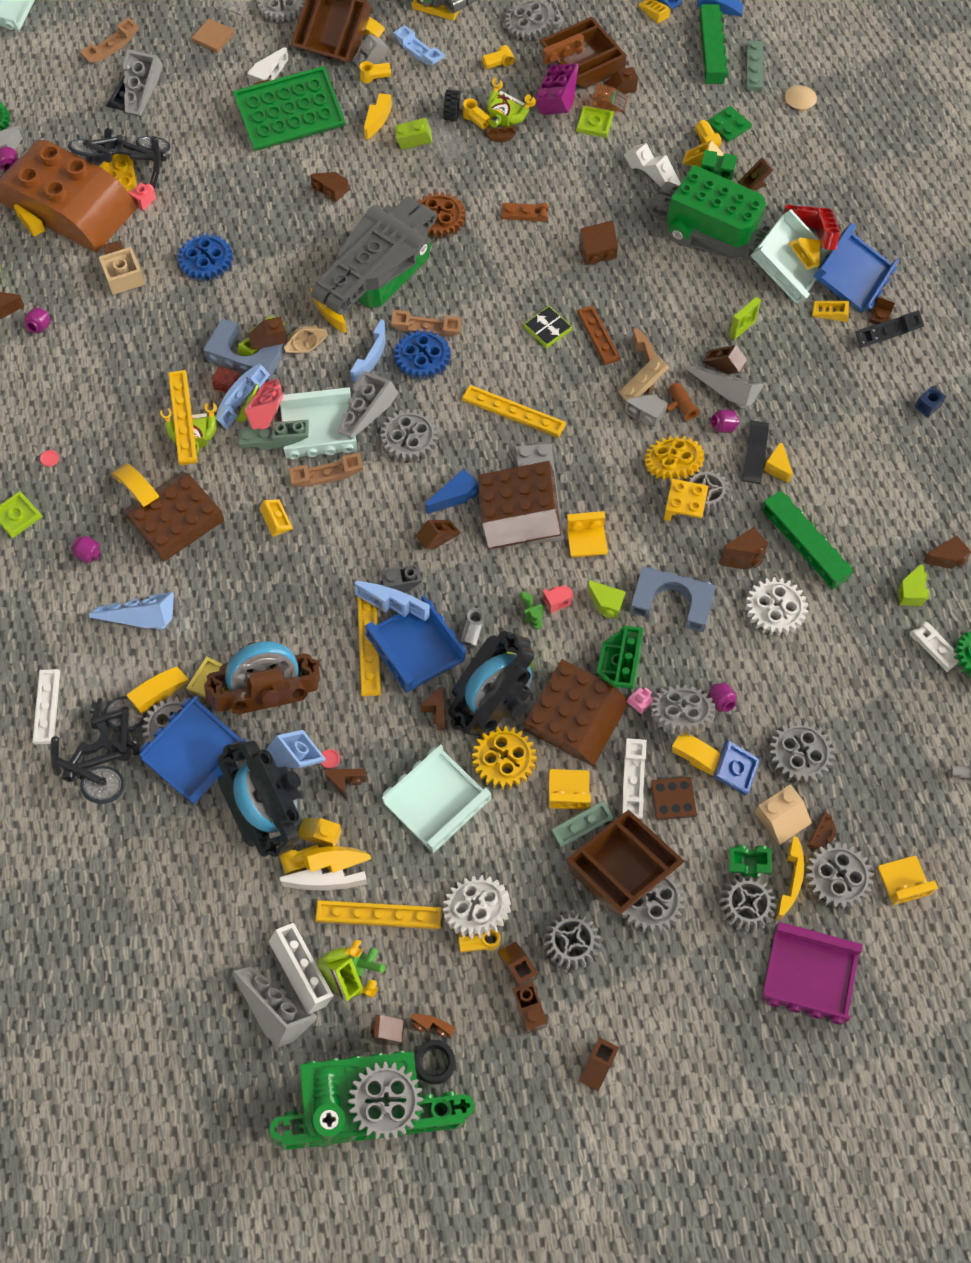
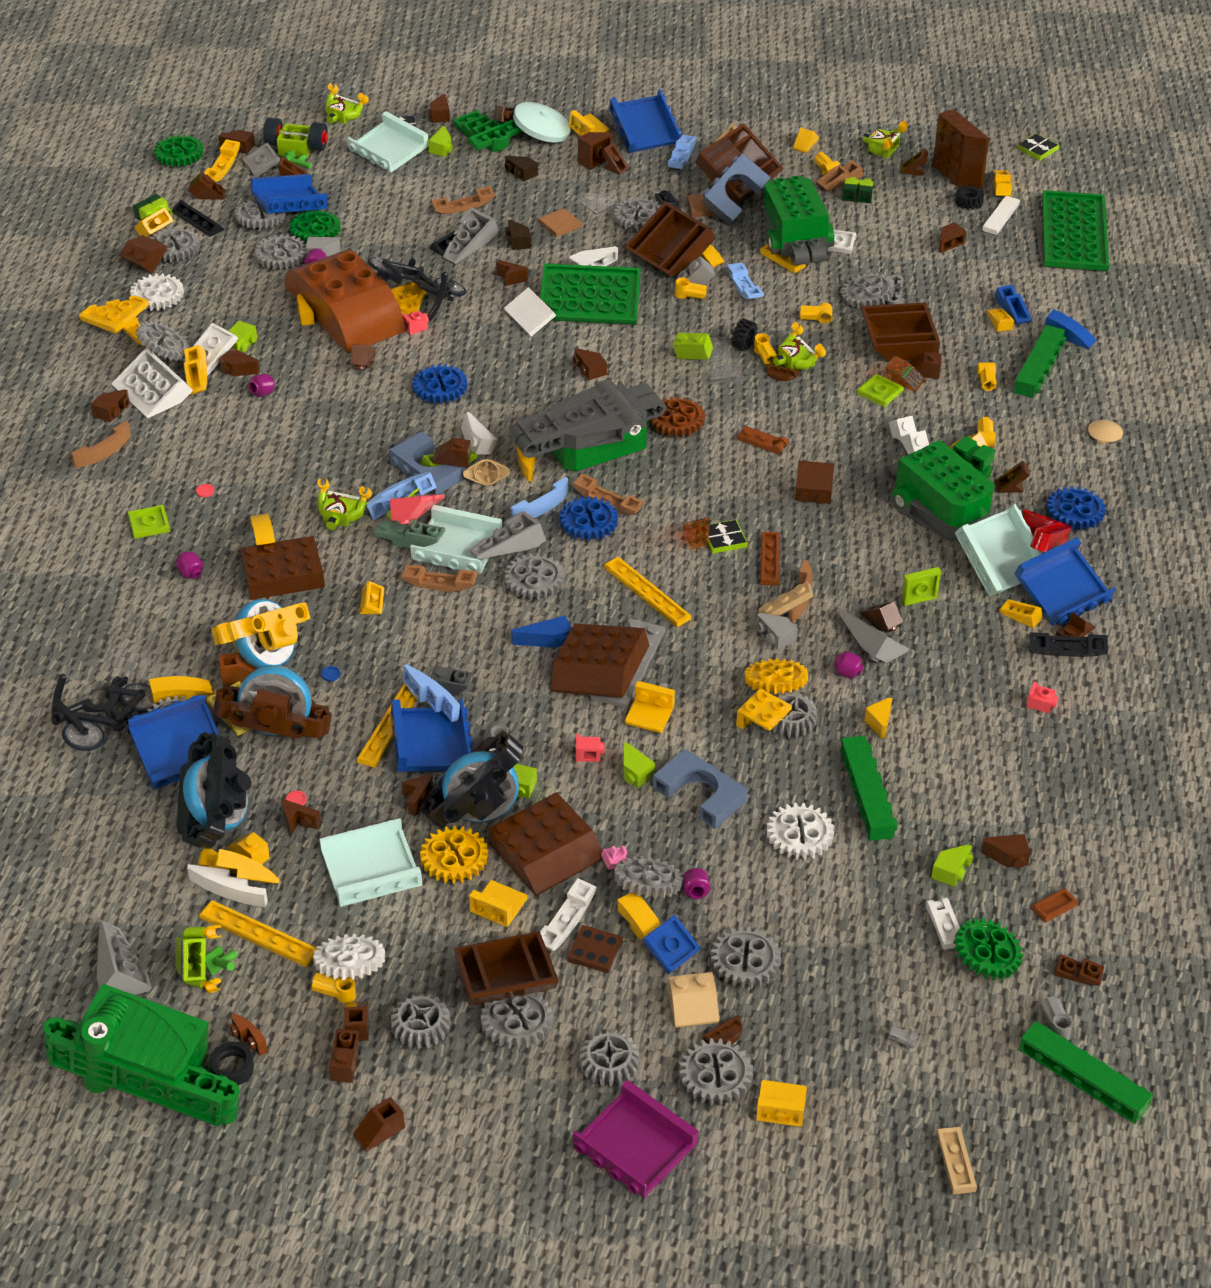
camera: 25 degrees right, 20 degrees down
(46, 706) = (81, 667): white tile -> none
(122, 270) = (358, 370): tan slope -> none
(149, 613) = (195, 625): light blue wedge -> none
(182, 417) = (336, 493): yellow tile -> none
(184, 63) = (518, 235): none -> dark brown slope
(200, 645) = (234, 668): none -> dark orange slope
(203, 107) = (512, 272): none -> reddish brown slope
(207, 601) = (263, 632): none -> yellow piece
(224, 379) = (392, 477): clear red panel -> none
(243, 147) = (529, 311): none -> white tile
(272, 302) = (481, 439): none -> white slope
(284, 612) = (330, 673): none -> blue piece
(294, 750) = (265, 771): light blue slope -> none
(300, 968) = (160, 941): white brick -> none
(377, 115) = (669, 323): yellow slope -> none
(384, 1078) = (156, 1041): light grey gear -> none
(387, 1030) = (202, 1008): slope -> none
(436, 533) = (508, 658): reddish brown slope -> none
(525, 333) = (696, 533): none -> clear orange slope
(532, 613) = (558, 751): bright green arm -> none
(557, 89) = (853, 351): magenta slope -> none
(563, 48) = (876, 317): dark orange plate -> none
(581, 823) = (487, 931): sand green plate -> none
(621, 657) = (618, 814): green wedge -> none
(675, 71) = (987, 375): none -> yellow piece
(683, 401) = (817, 636): dark orange piece -> none
(729, 124) = (1015, 431): green plate -> none
(744, 551) = (793, 770): reddish brown slope -> none
(750, 861) = (629, 1021): green cylinder -> none
(754, 67) = (1074, 392): sand green plate -> none
(755, 452) = (864, 697): black slope -> none
(794, 855) = (649, 1072): yellow slope -> none
(807, 251) = (1017, 547): yellow slope -> none
(820, 186) = (1076, 507): none -> blue gear
(894, 391) = (1042, 698): none -> coral brick
(930, 401) = (1074, 718): dark blue brick -> none

